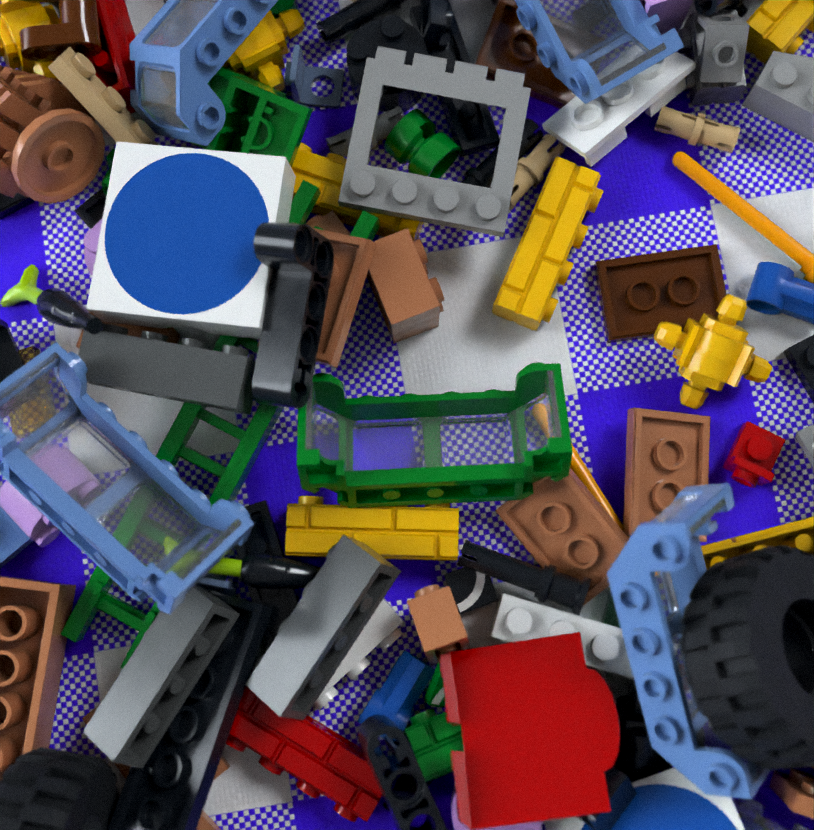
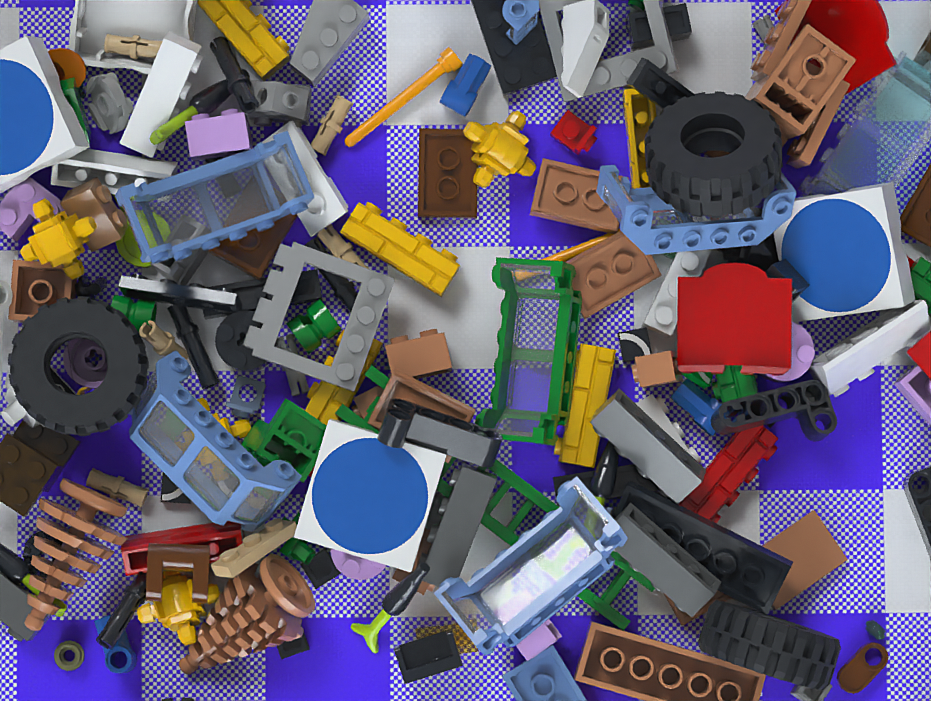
camera: 90 degrees left, 5 degrees up
(544, 582) = (640, 294): black pin -> none

